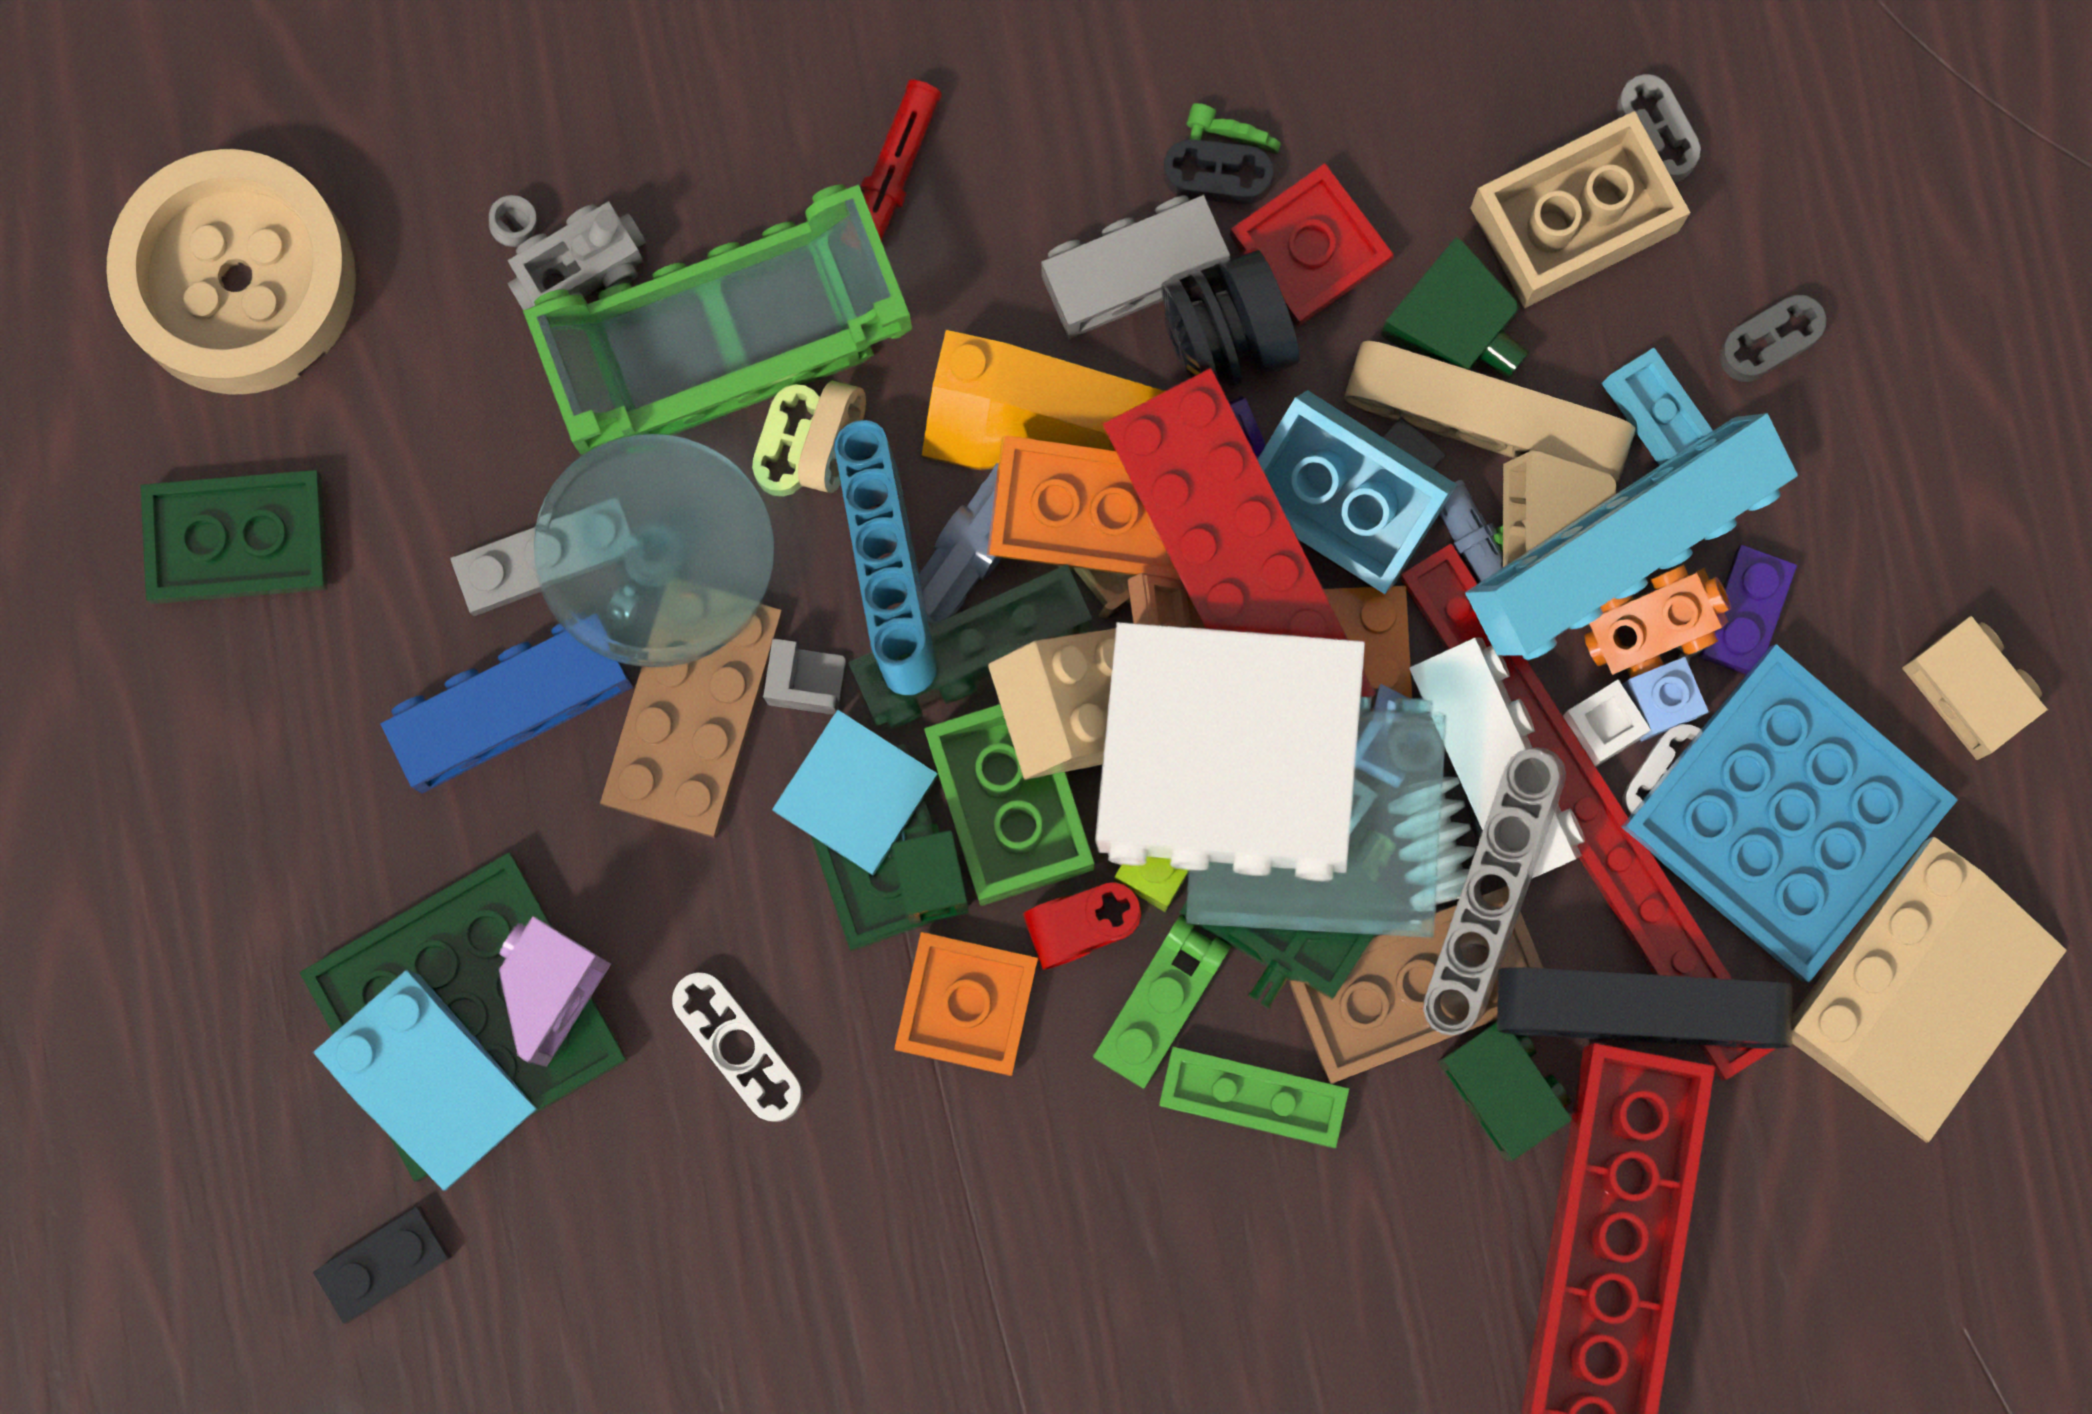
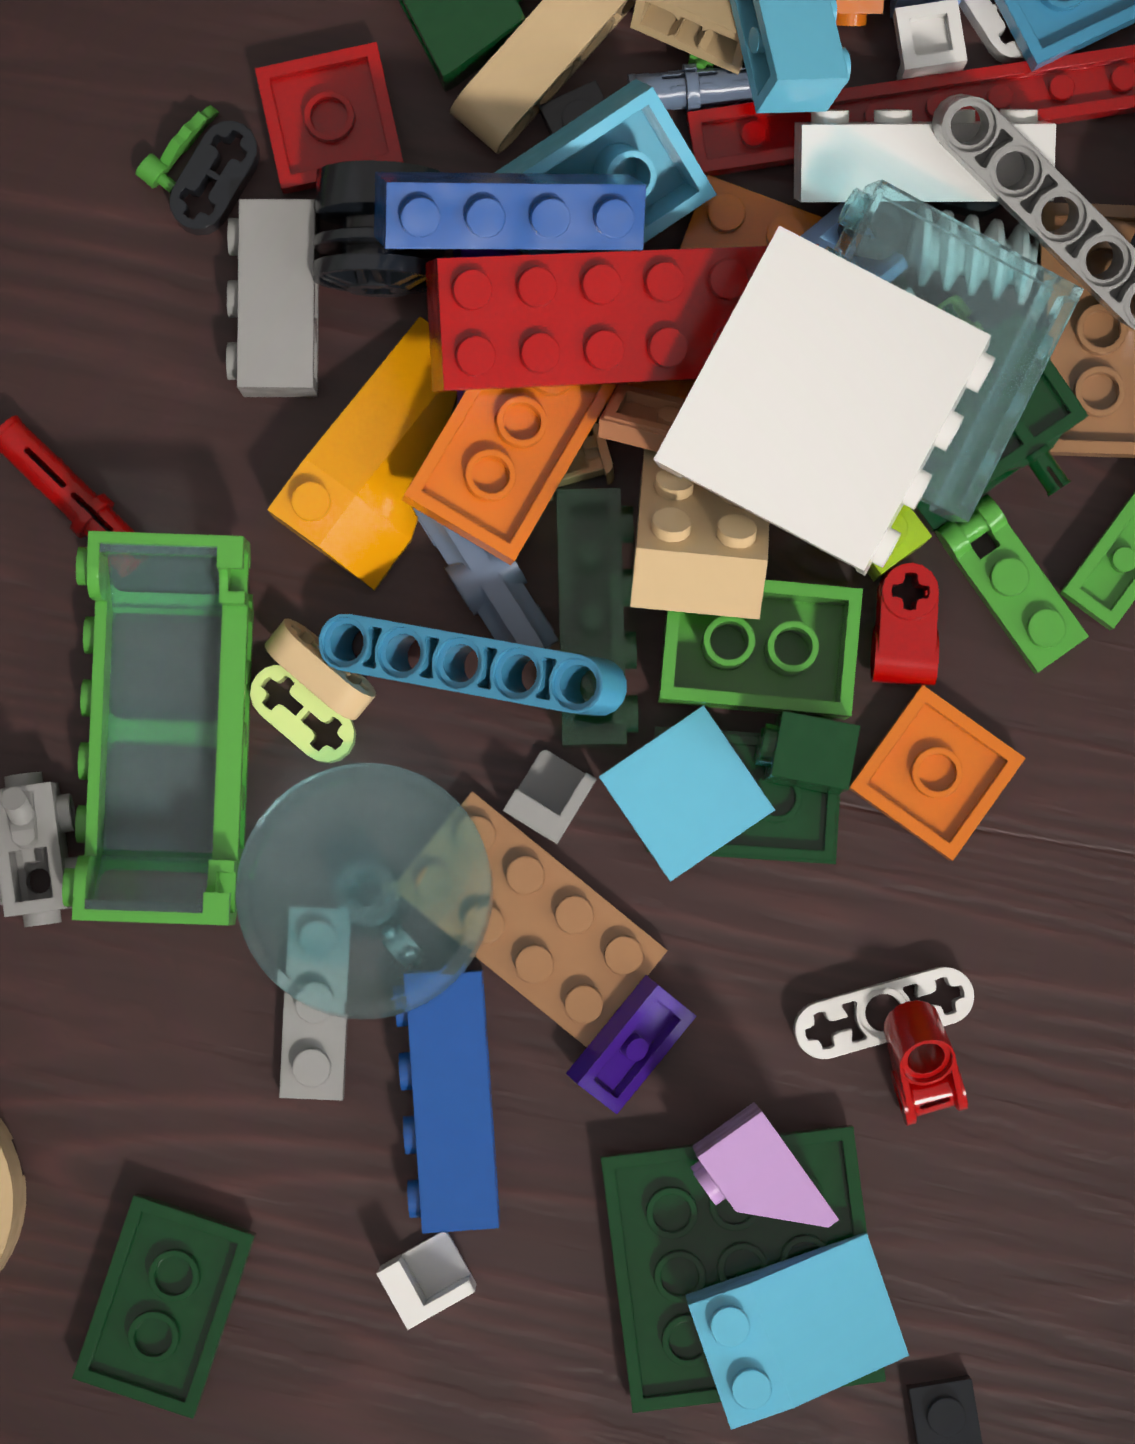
camera: 70 degrees left, 5 degrees up
(344, 748) = (426, 1279): none -> white panel
(618, 837) = (631, 1044): none -> dark purple plate
(706, 1096) = (922, 1061): none -> red piece
(1282, 415) = (509, 211): none -> brick

